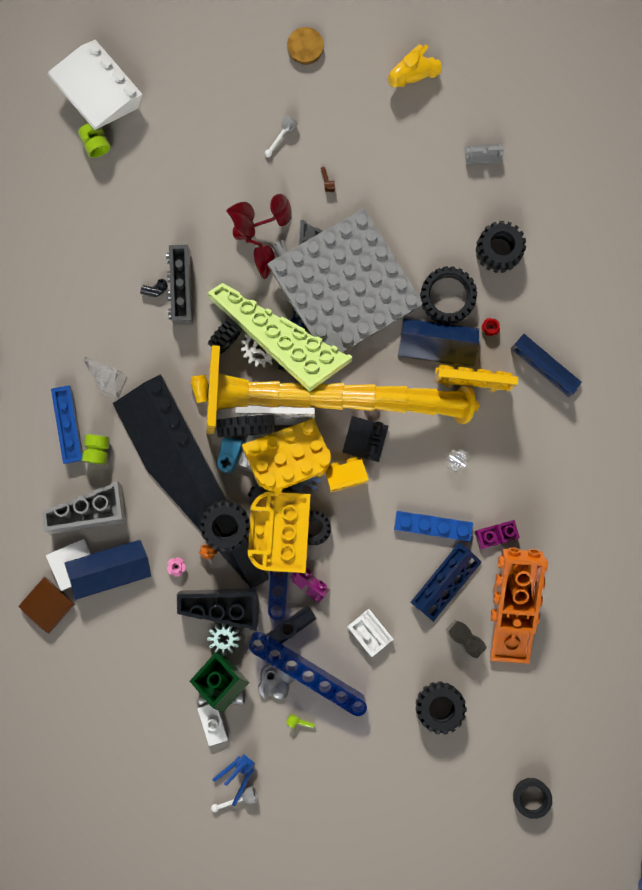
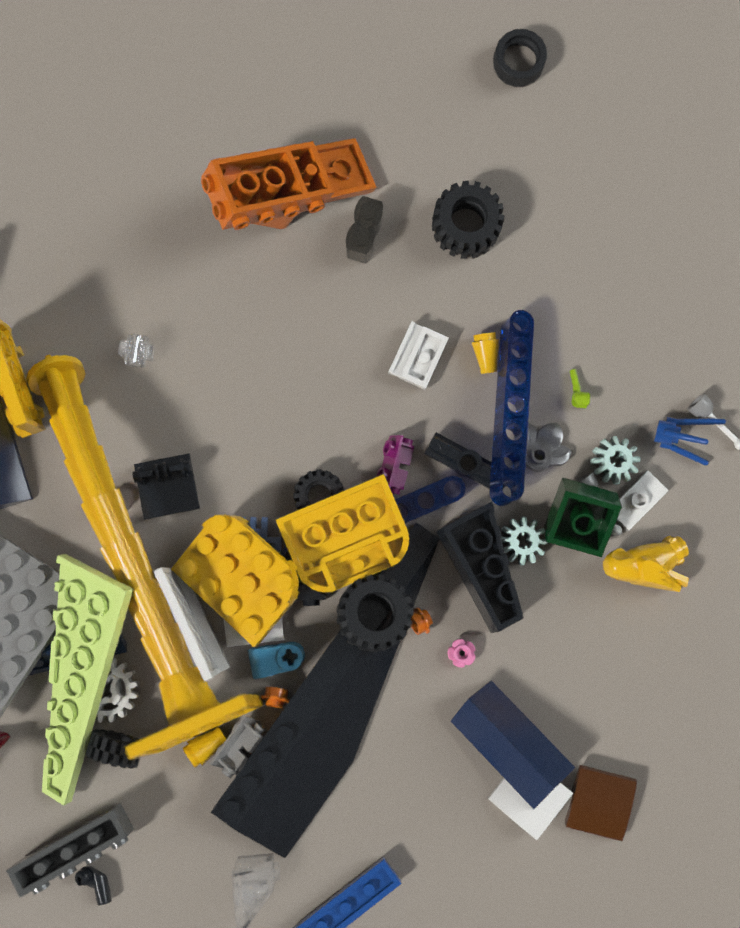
camera: 120 degrees left, 0 degrees up
(87, 511) = (446, 810): light grey wedge -> none
(96, 449) = (359, 847): lime wheel -> none
(170, 709) = (650, 564): none -> yellow animal
(194, 415) = (245, 734): none -> light grey hinge
(207, 443) = (275, 697): none -> orange plate
(237, 724) = (609, 450): none -> light aqua gear
(245, 426) = (224, 654): black tyre -> none
(346, 475) = (226, 485): yellow slope -> none
(351, 676) = (486, 351): none -> yellow cone
(433, 526) = (239, 341): blue plate -> none
(444, 579) = (302, 293): dark blue fence -> none
(497, 534) = (210, 255): magenta slope -> none

